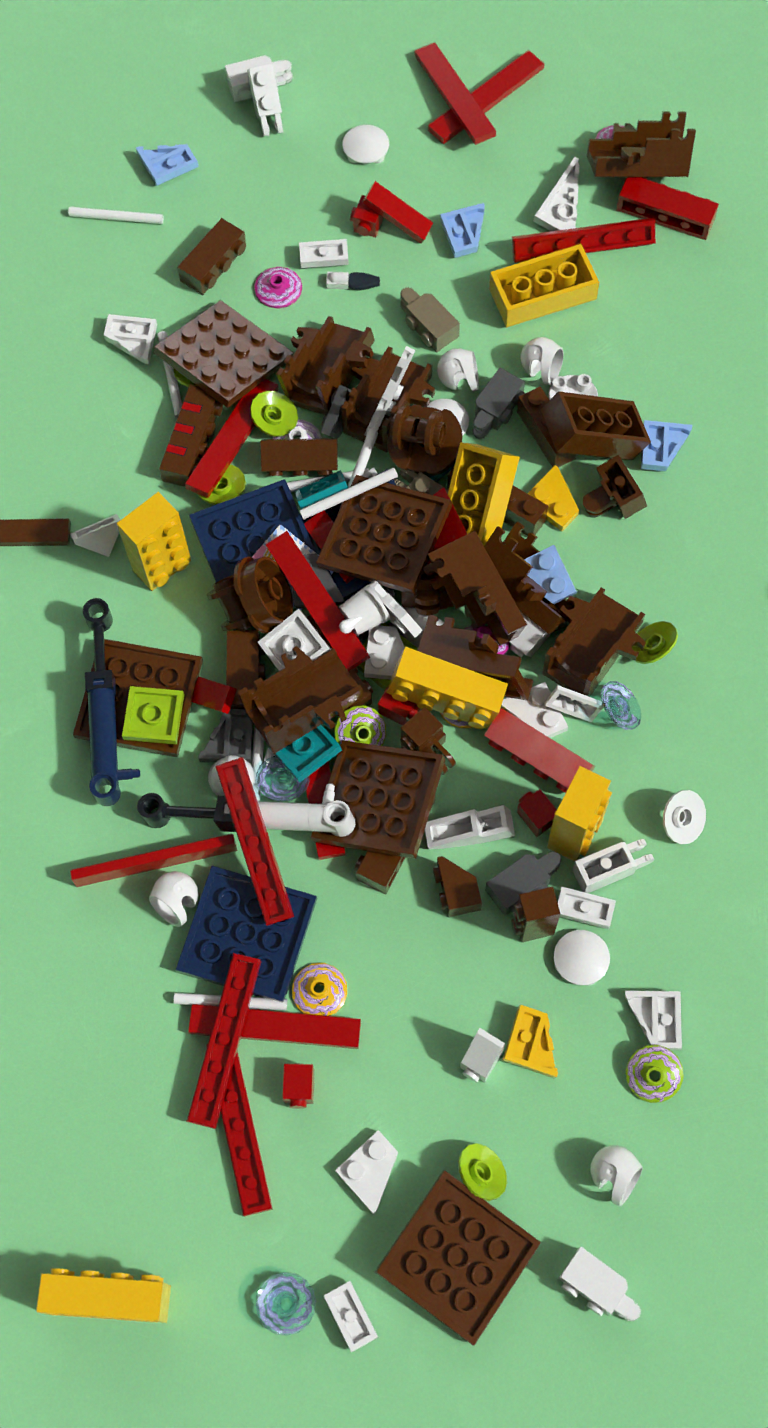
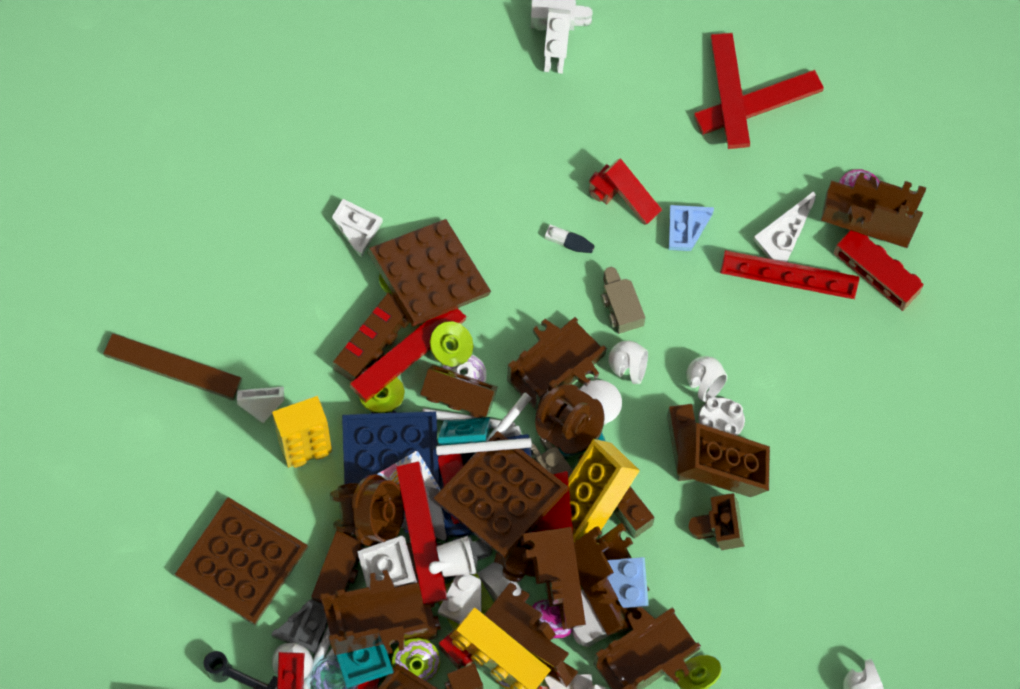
camera: 15 degrees right, 0 degrees up
(101, 708) = (211, 546): dark blue piece -> none
(115, 215) = (384, 103): white piece -> none
(153, 715) = (246, 583): lime plate -> none
(167, 161) = (448, 68): light blue wing -> none
(172, 382) = (375, 285): white piece -> none
(212, 256) = (454, 175): reddish brown brick -> none
(213, 695) = (304, 583): red tile -> none
(280, 294) = (499, 231): dish -> none
(323, 253) = (553, 205): white plate -> none
(323, 363) = (512, 312): reddish brown piece -> none
(332, 422) = (499, 369): dark grey wing -> none
(365, 144) = (631, 112): white dish -> none
(392, 390) = (555, 368): white wing -> none
(397, 614) = (484, 567): white wing -> none
(497, 402) = (650, 402): dark grey hinge -> none
(543, 285) = (735, 307): yellow brick -> none
(556, 494) = (667, 509): yellow wing -> none
(665, 444) = (783, 493): light blue wing -> none

